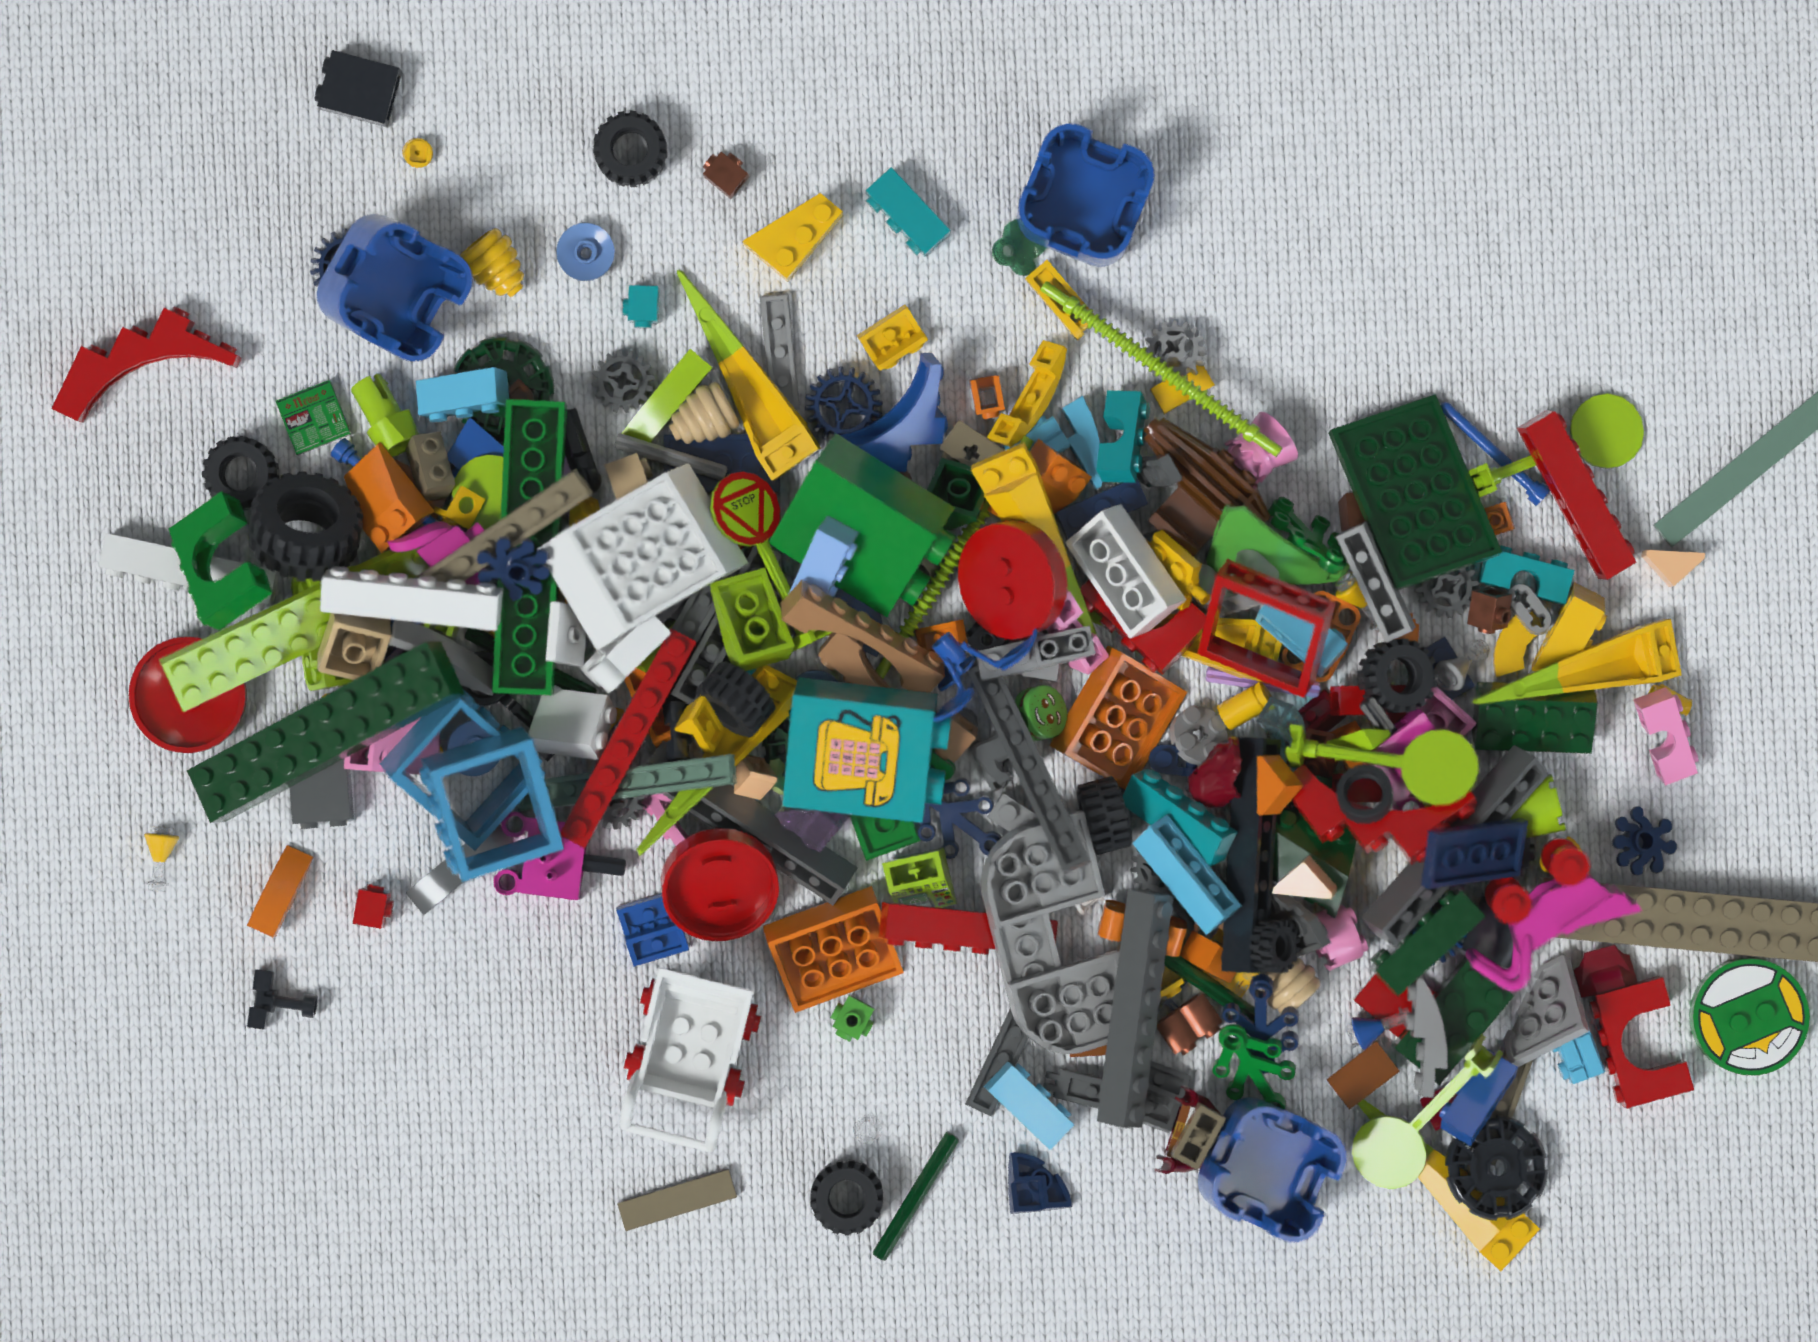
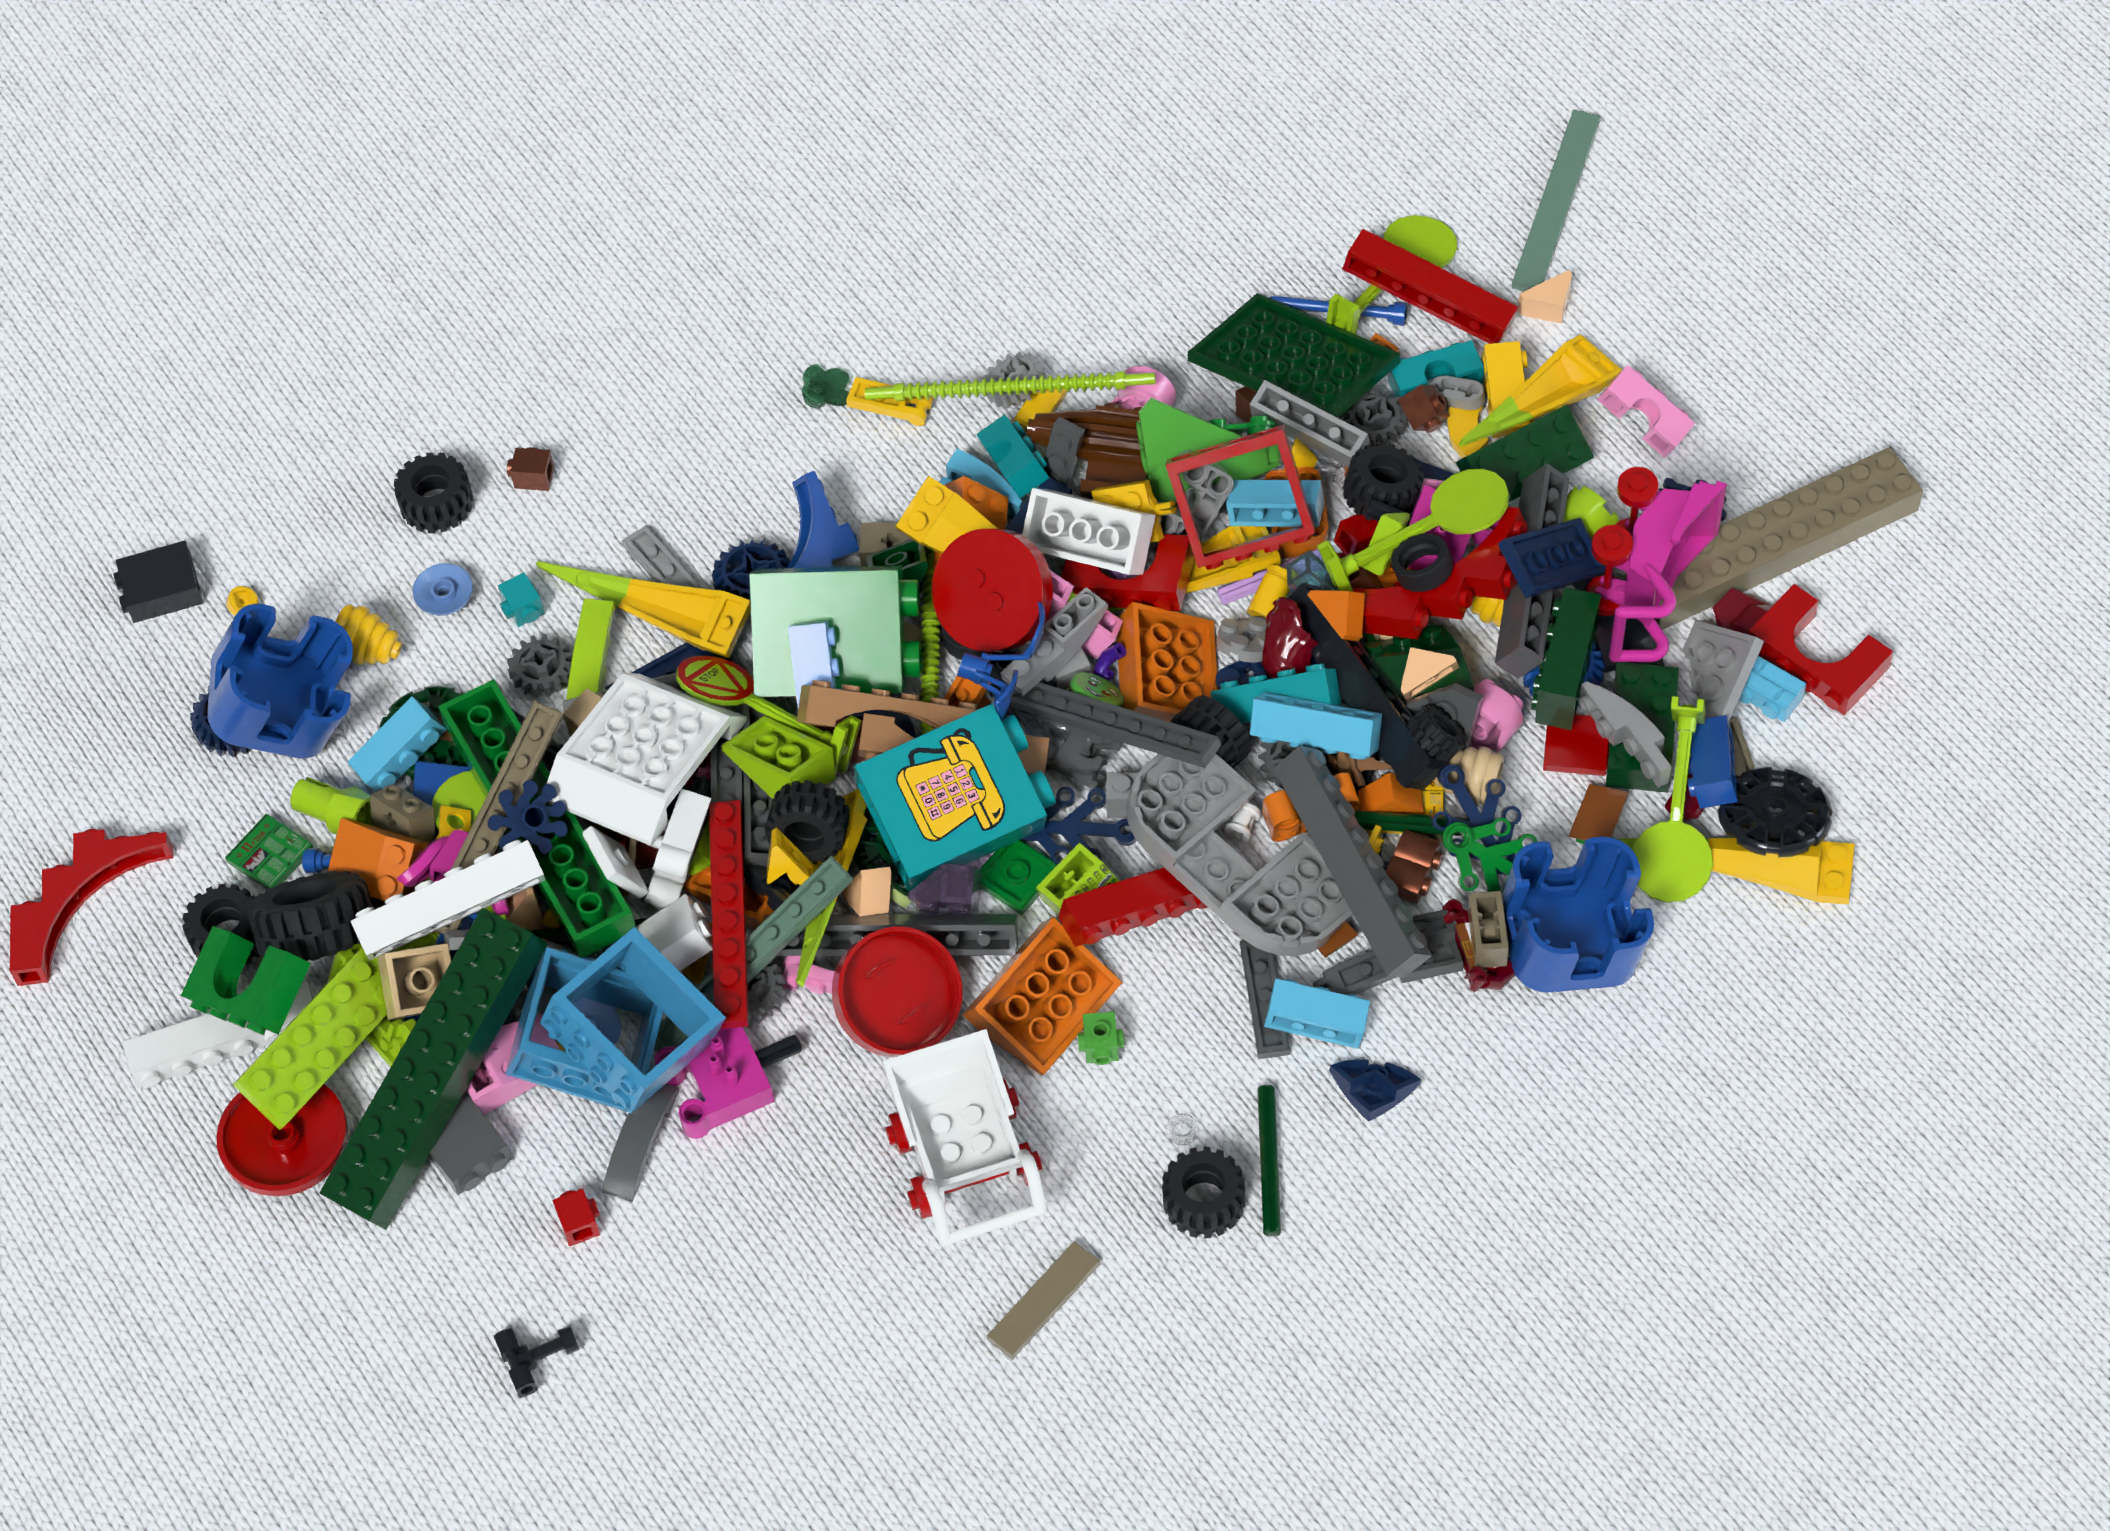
camera: 25 degrees left, 30 degrees down
(160, 843) = (331, 1282): piece -> none
(280, 891) = (477, 1257): orange slope -> none
(650, 930) = (856, 1083): blue slope -> none
(704, 416) = (632, 641): tan piece -> none
(794, 237) = (621, 479): yellow wedge -> none
(892, 338) = (759, 504): yellow bracket -> none
(906, 213) = (710, 410): teal brick -> none
(987, 396) = (875, 501): orange window -> none
(1035, 397) = (913, 453): yellow slope -> none
(1073, 680) = (1108, 657): none -> dark purple arm
(1084, 196) = (854, 311): blue piece -> none
(1366, 1030) = (1572, 781): piece -> none
(1454, 671) = (1432, 460): clear piece -> none
(1749, 1016) = (1892, 579): piece -> none

